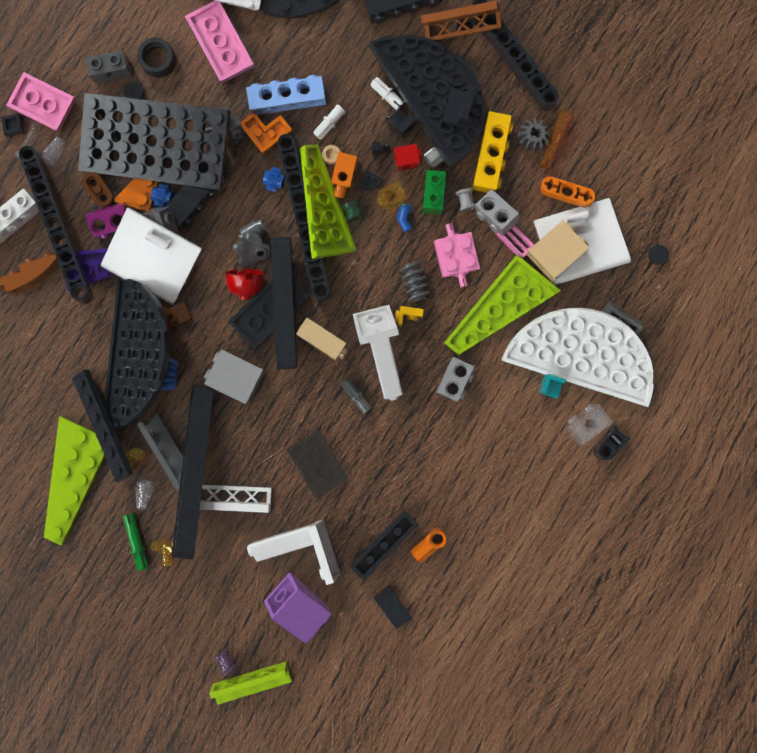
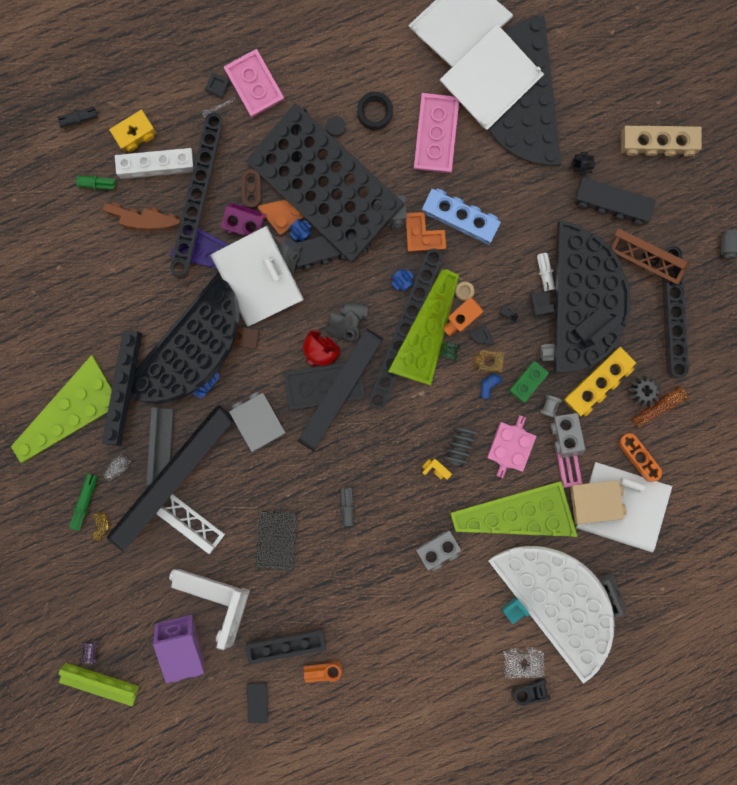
camera: 30 degrees right, 0 degrees up
(52, 153) = (235, 131): clear cone -> none
(108, 67) = (329, 92): dark grey brick -> none
(135, 454) = (132, 429): clear yellow arm -> none
(322, 340) = (351, 443): tan brick -> none
(329, 122) = (481, 263): white axle -> none
(377, 327) = (402, 464): white piece -> none
(407, 157) = (526, 337): red brick -> none
(658, 254) = (680, 562): black tile -> none

